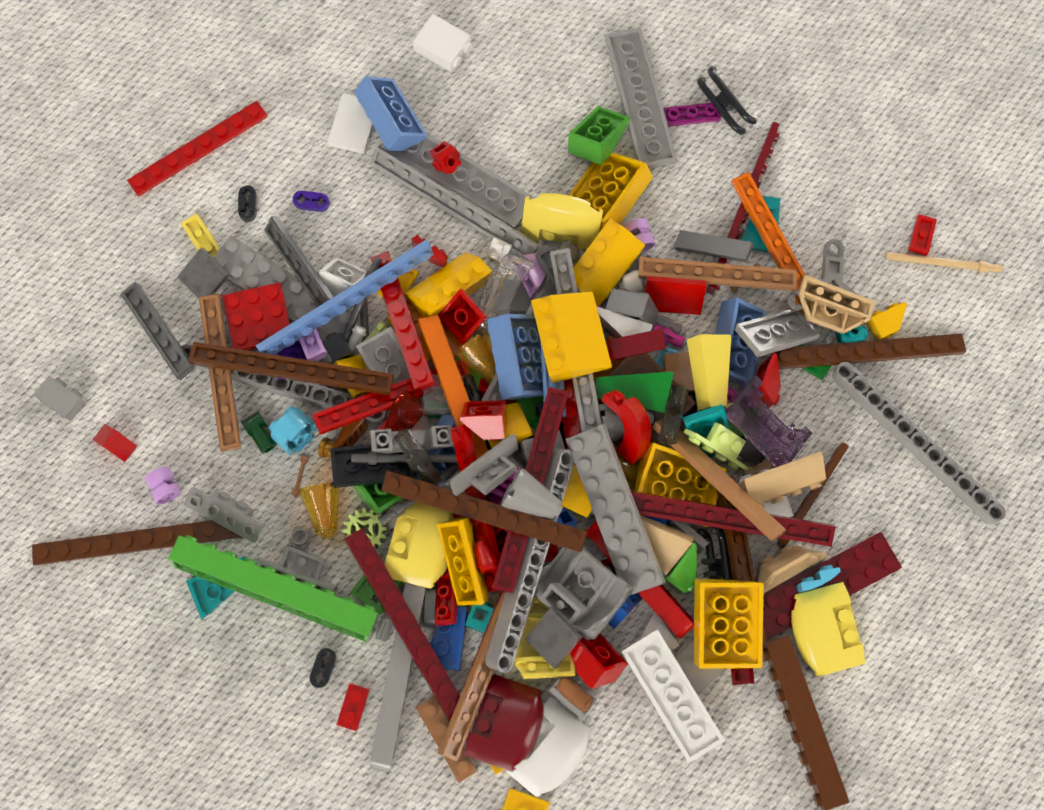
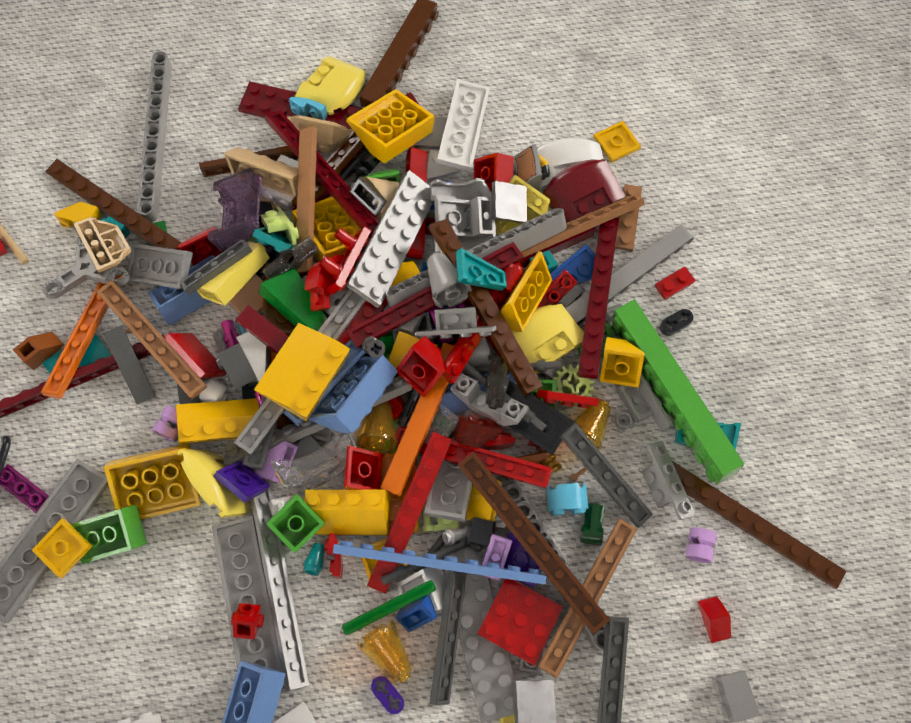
camera: 135 degrees left, 5 degrees down
(277, 472) = (606, 475): none -> dark grey tile
(336, 222) = (387, 651): none -> clear yellow cone
(336, 261) = (416, 614): none -> blue slope
(338, 575) = (621, 363): none -> yellow slope
(354, 502) = (567, 399): none -> red plate
(357, 247) = (389, 607): none -> green axle
(441, 237) = (314, 562): none -> teal cone
(474, 241) = (295, 523): none -> bright green slope
(508, 523) = (478, 272): none -> teal wing
(533, 398) = (369, 342): none -> dark grey bush
(539, 233) = (241, 481): none -> dark purple tile
(564, 717) = (545, 168): none -> black arm
(618, 99) = (62, 548): none -> yellow tile
(628, 459) = (352, 255): none -> red plate
(672, 527) = (357, 191): none -> black slope
(725, 361) = (215, 266): none -> dark grey tile
(792, 202) = (38, 348): none -> dark orange slope

